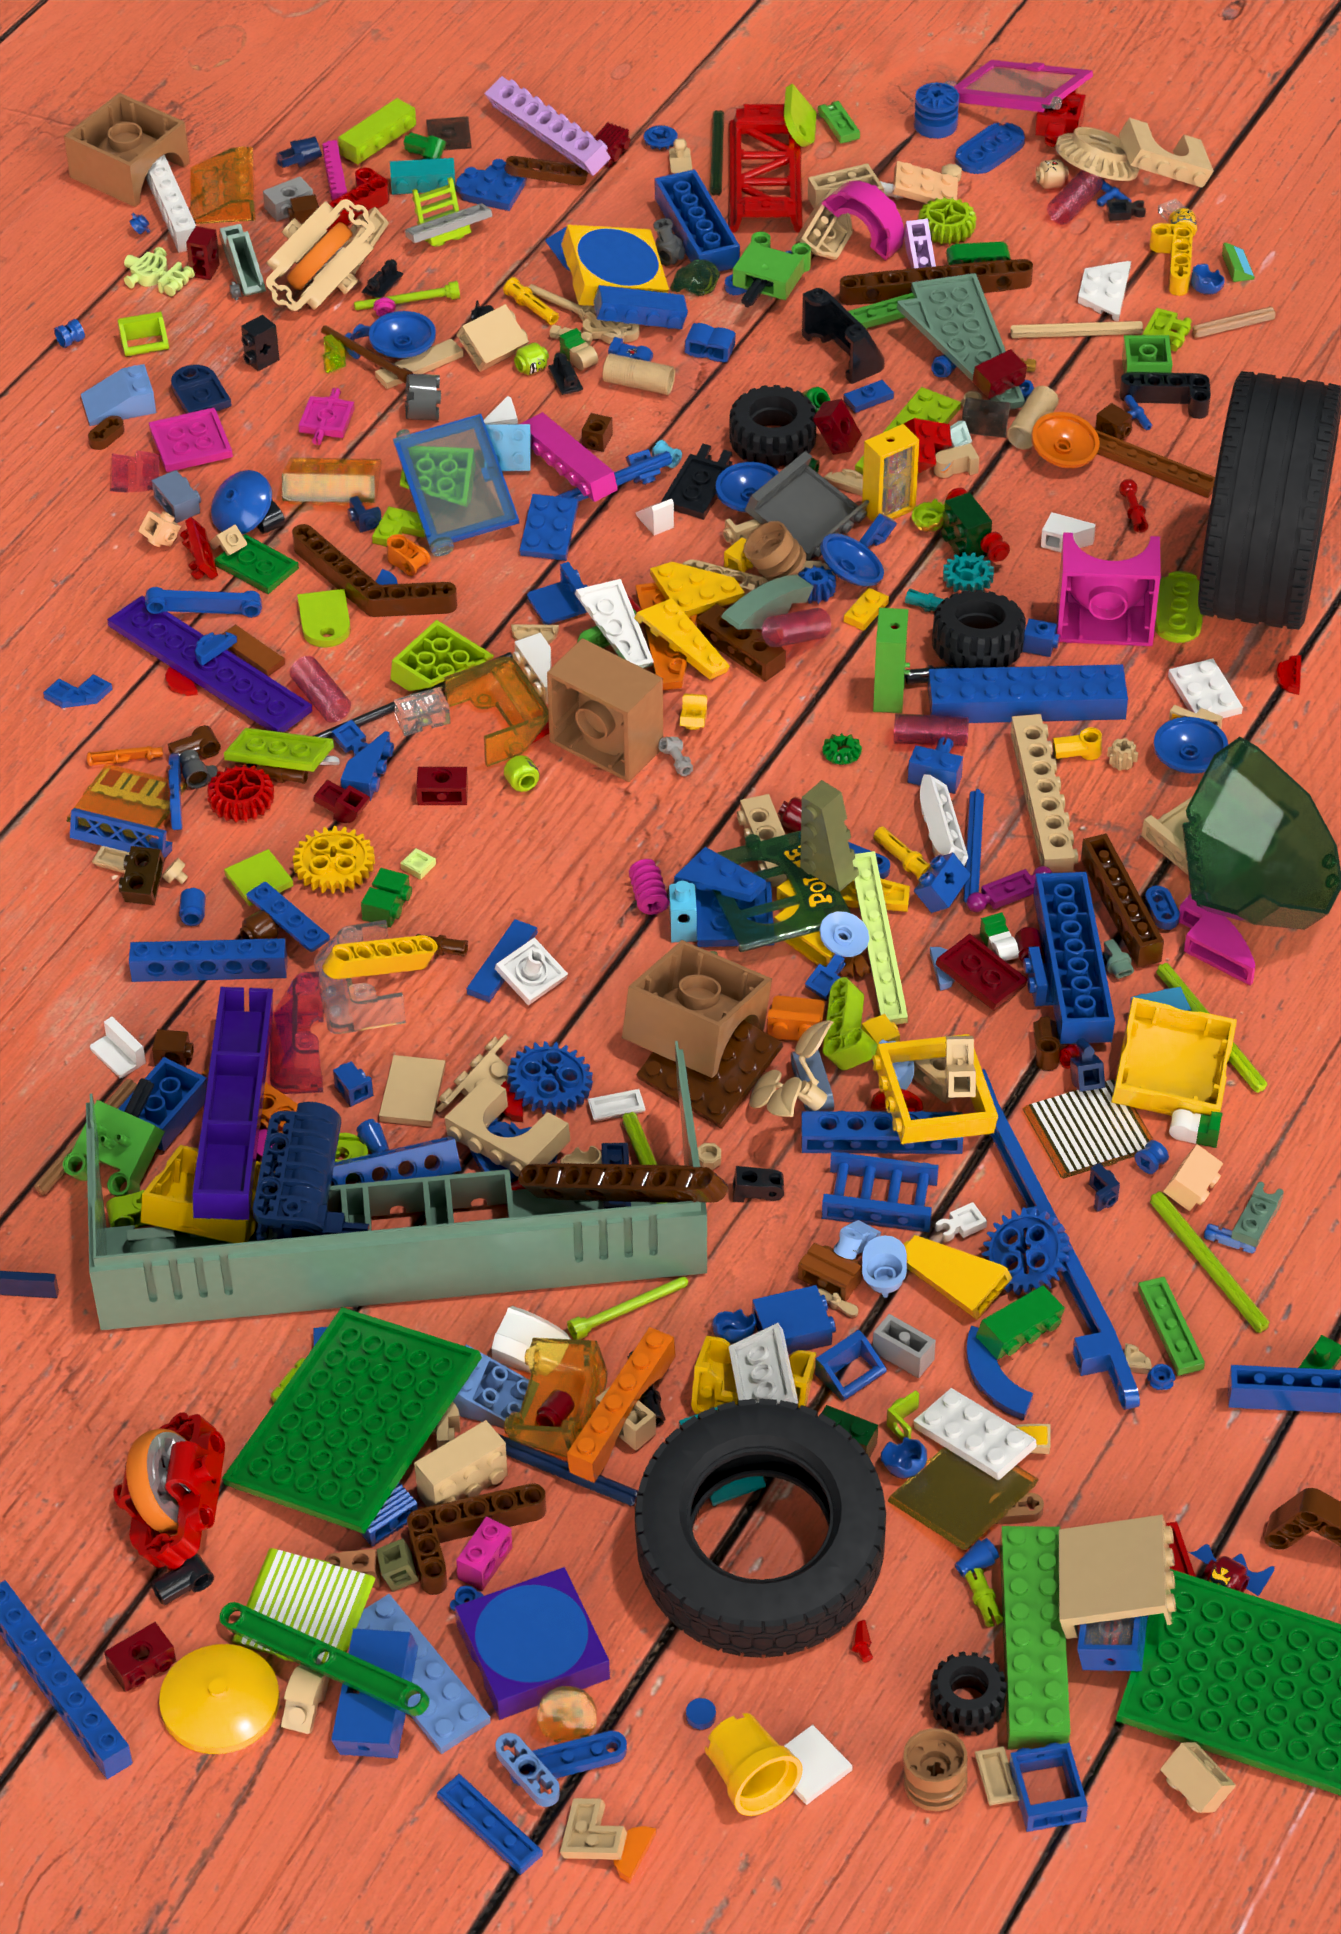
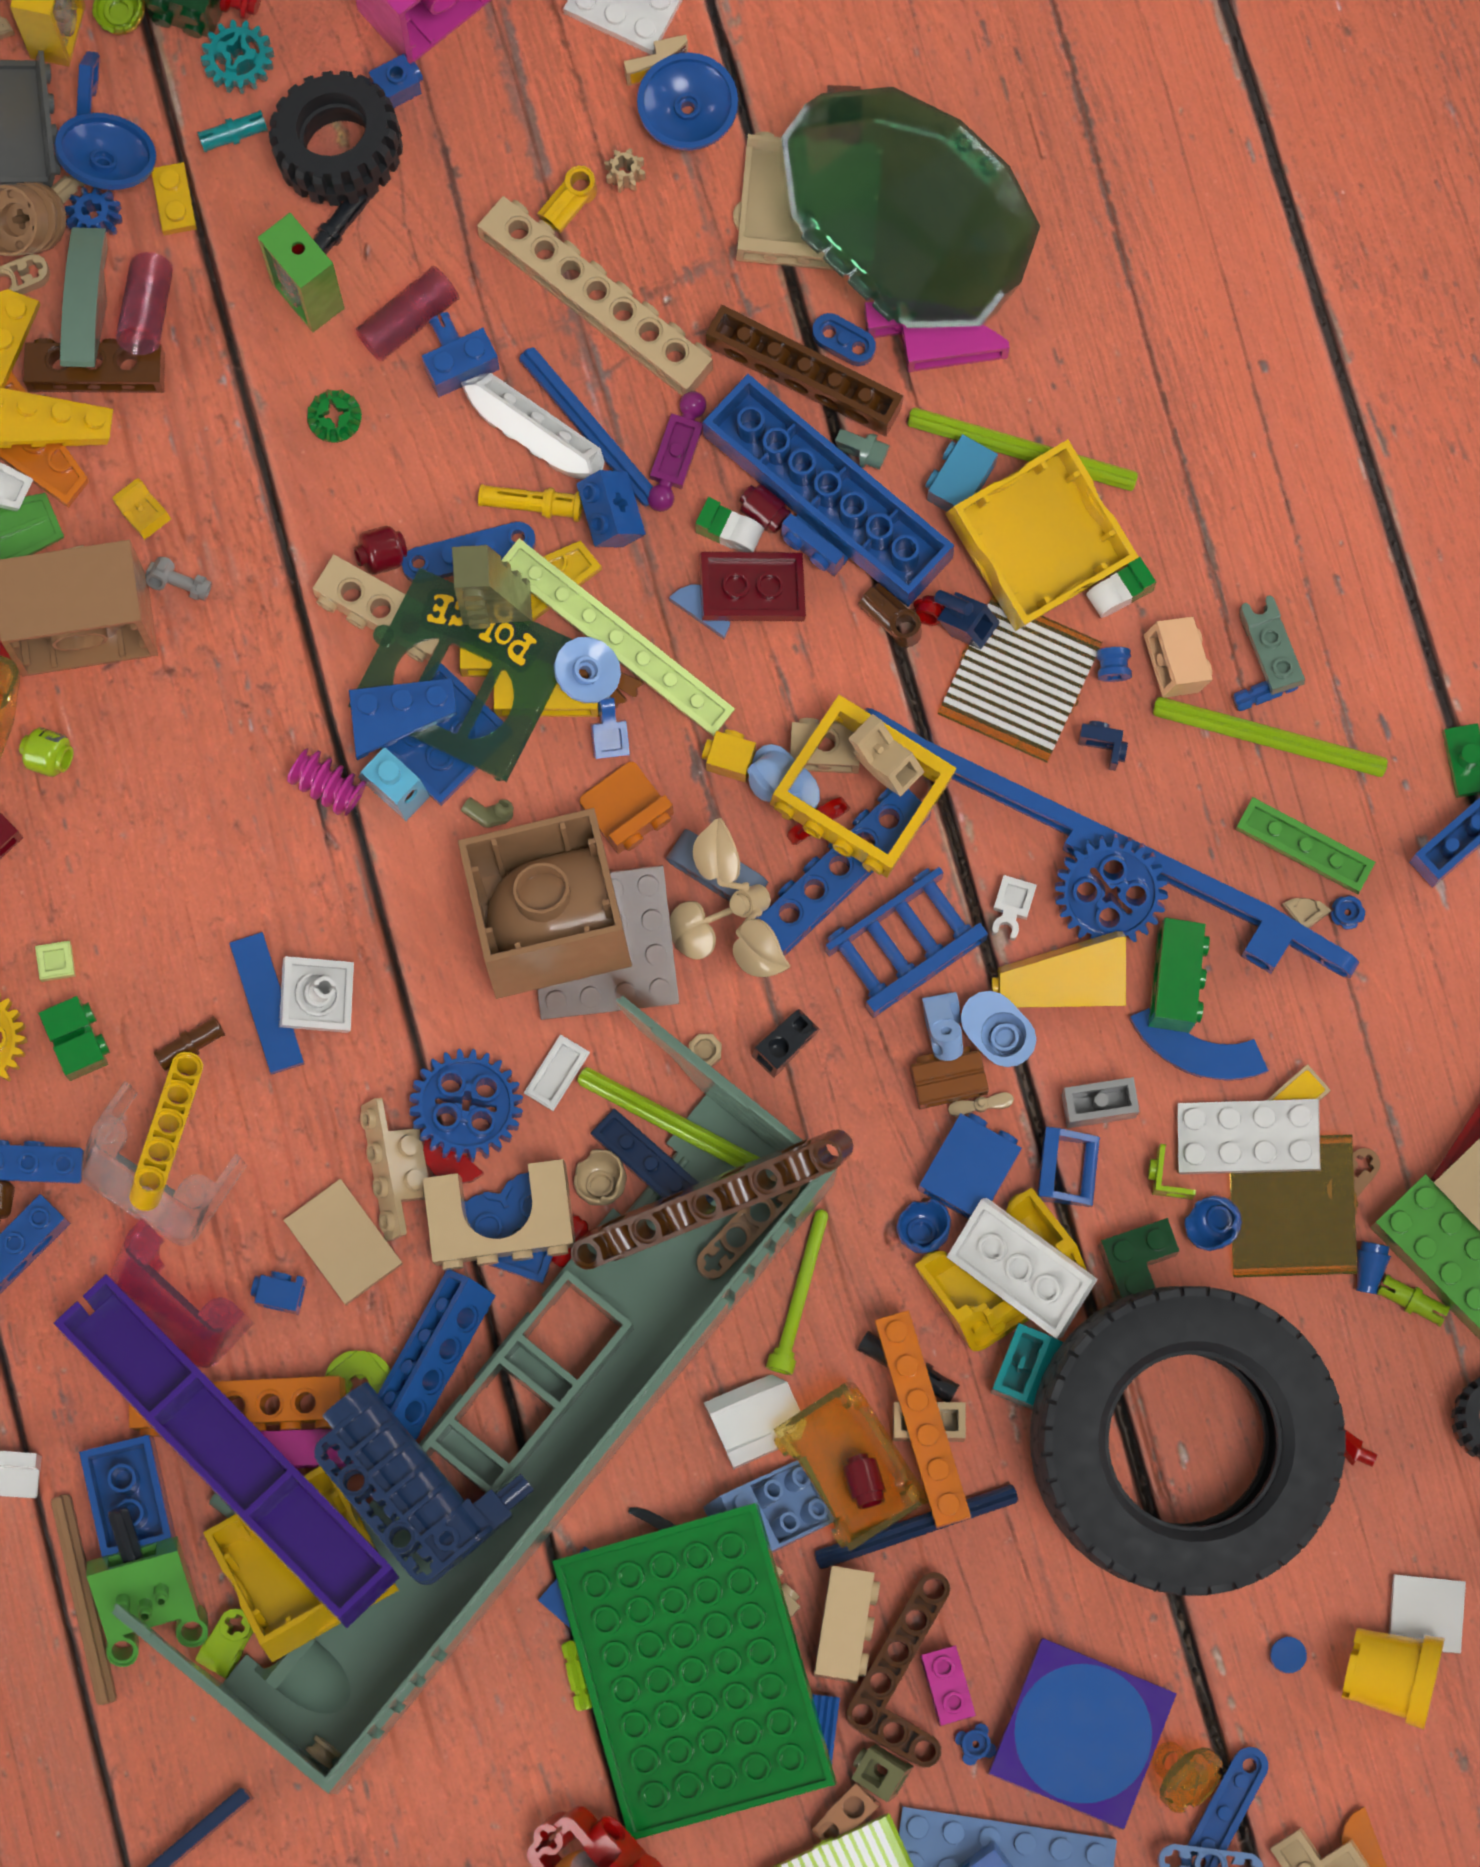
camera: 45 degrees left, 30 degrees up
(173, 1046) = (59, 1421): reddish brown brick -> none
(372, 1135) = (369, 1336): blue cone -> none
(845, 1040) = (657, 742): lime beam -> none
(1052, 691) = (456, 175): blue brick -> none

